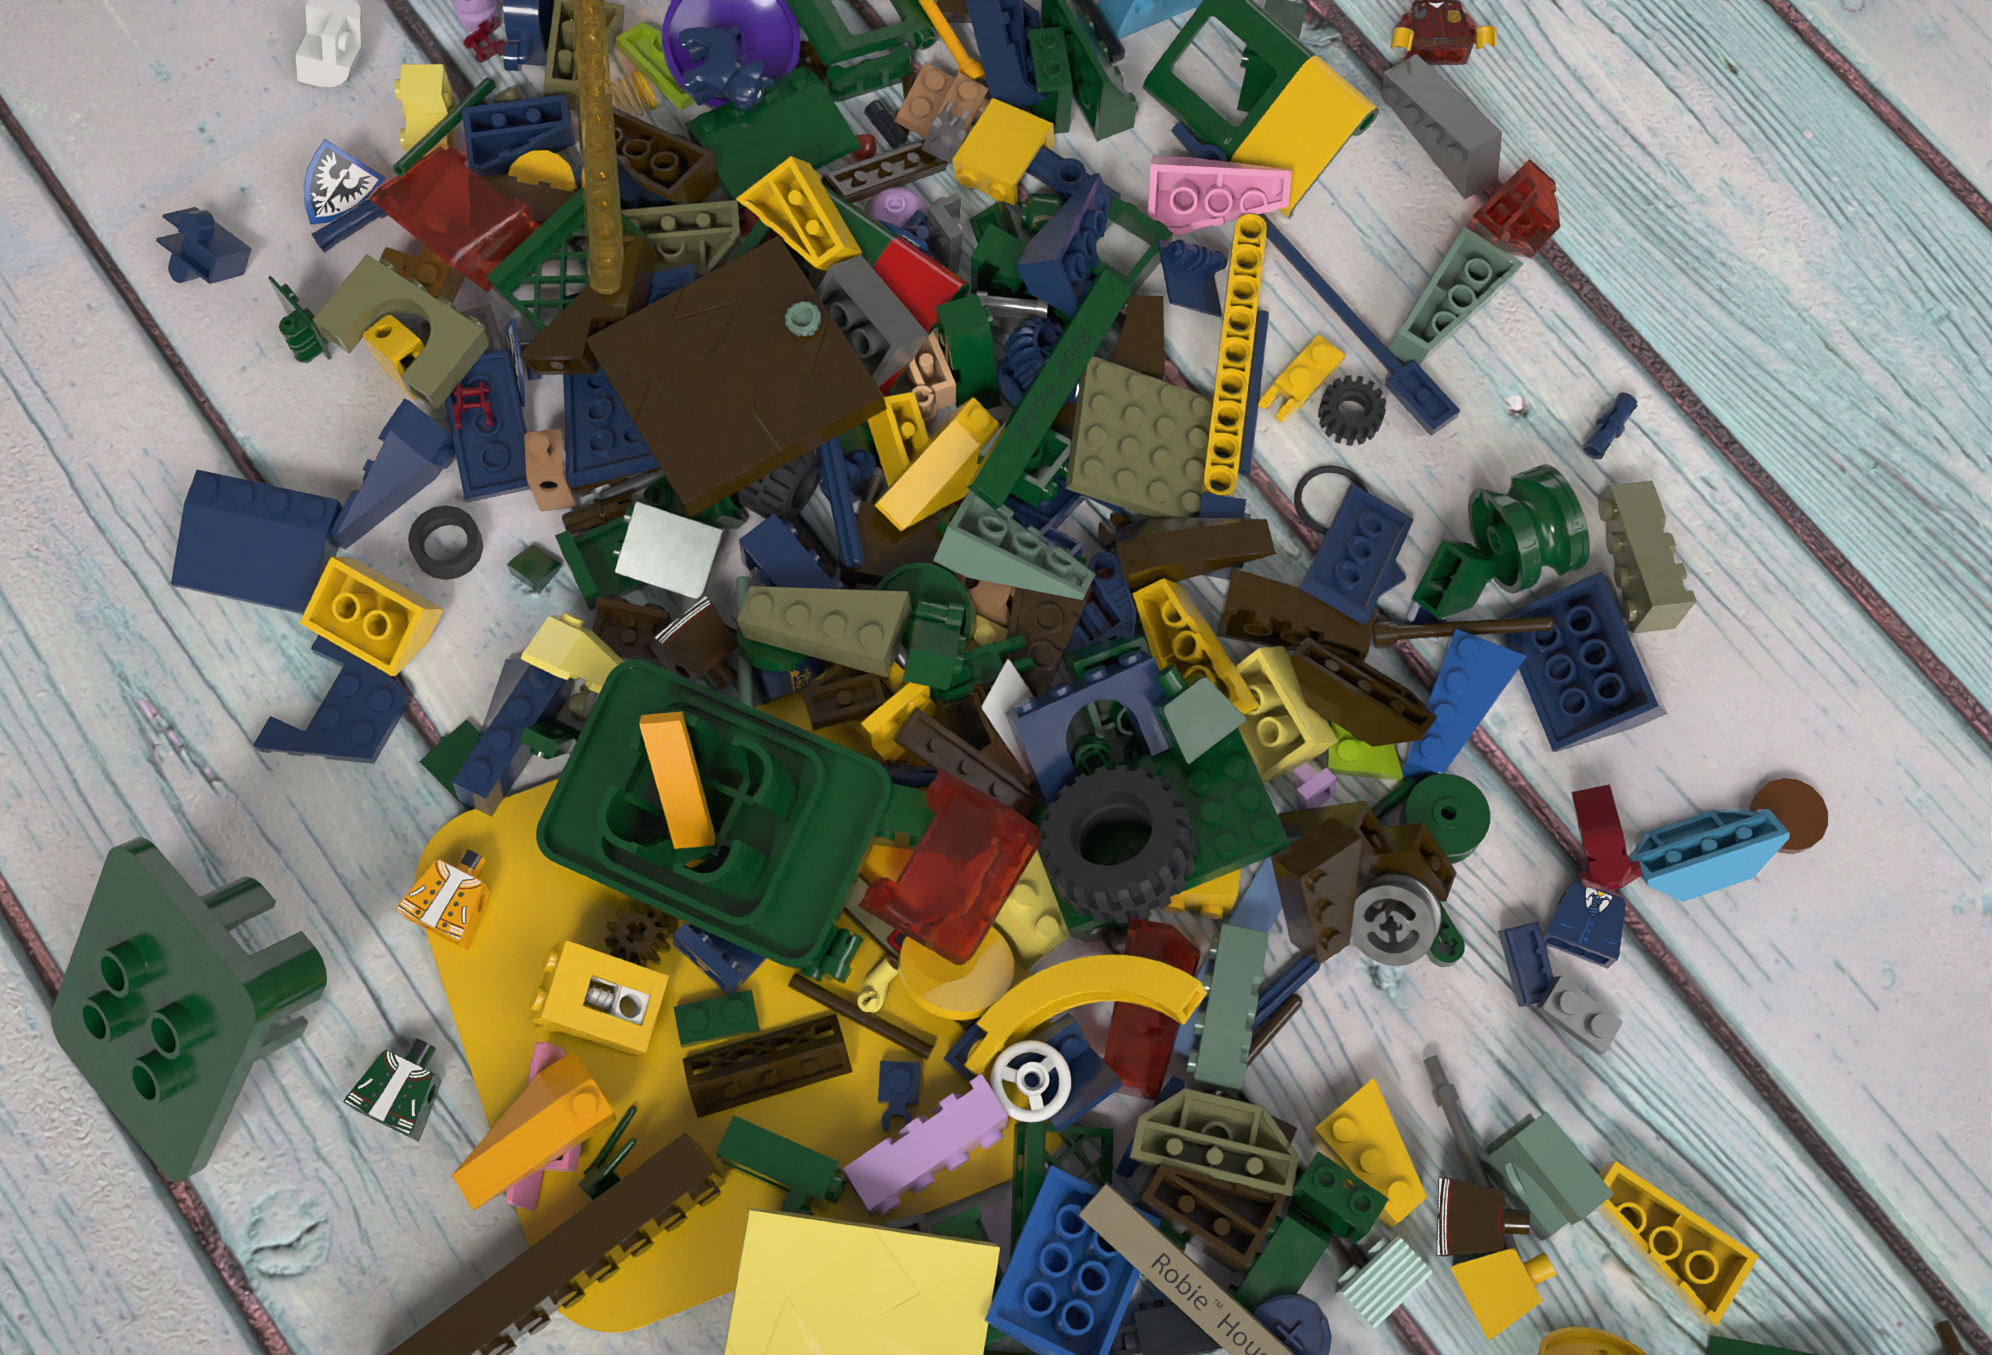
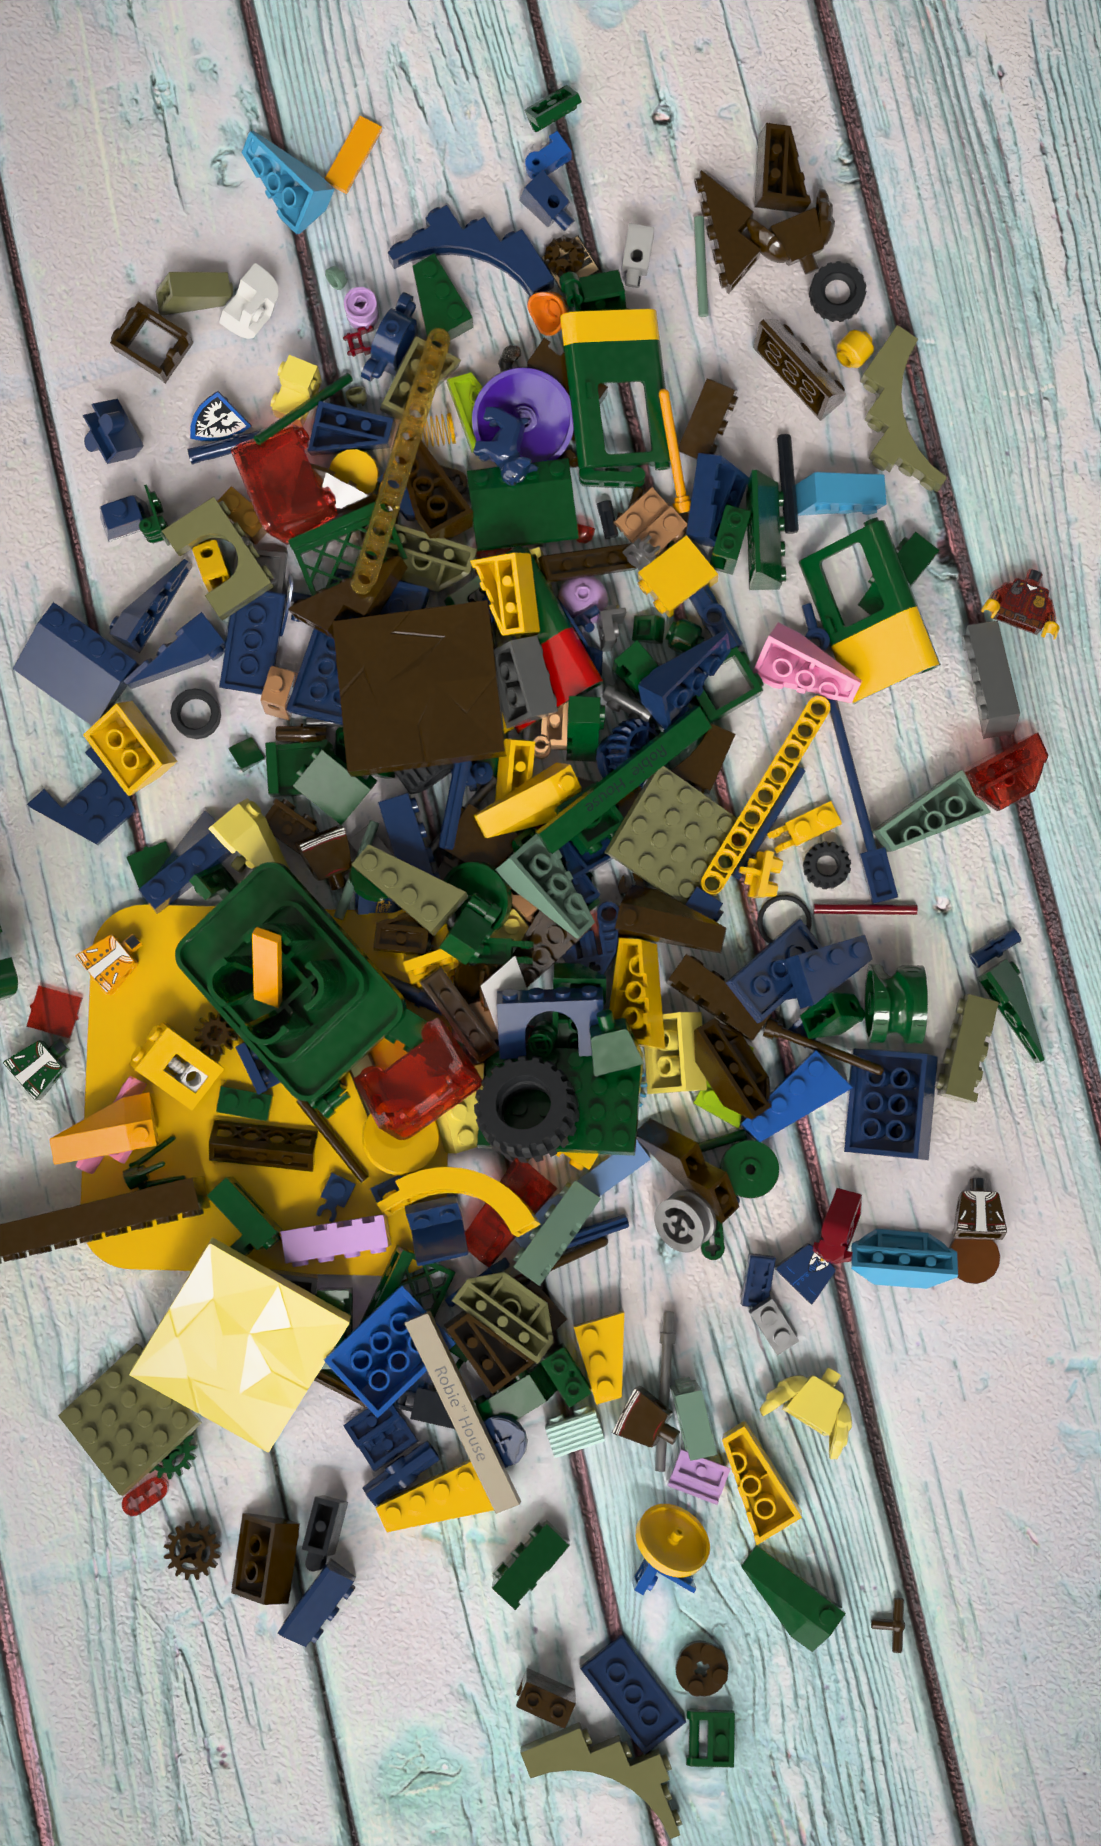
camera: 25 degrees right, 15 degrees up
(185, 118) = (133, 323): none -> dark brown window
(247, 55) = (193, 291): none -> olive slope
(252, 340) = (123, 517): none -> dark blue torso
(328, 445) = (143, 615): none -> dark blue wedge
(394, 1009) = (54, 1012): none -> clear red piece
(461, 406) = (256, 619): dark red piece -> none
(803, 318) = (475, 674): sand green piece -> none
(875, 985) = (348, 1125): light yellow arm -> none
(1053, 1059) = (397, 1215): white piece -> none
(1190, 275) = (762, 725): dark blue hinge -> none
(1272, 452) = (758, 874): none -> yellow hips
(1313, 788) = (677, 1113): lavender tile -> none
(1319, 888) = (644, 1184): dark brown wedge -> none
(1414, 523) = (825, 968): none -> dark blue wedge
(1425, 445) = (867, 909): none -> dark red bar
(1502, 1287) = (642, 1466): yellow torso -> none
(1586, 1270) = (699, 1477): none -> lavender plate
(1677, 486) = (1006, 987): none -> dark green wedge
(1692, 1098) = (816, 1405): none -> light yellow torso
(1769, 753) = (979, 1213): none -> dark brown torso

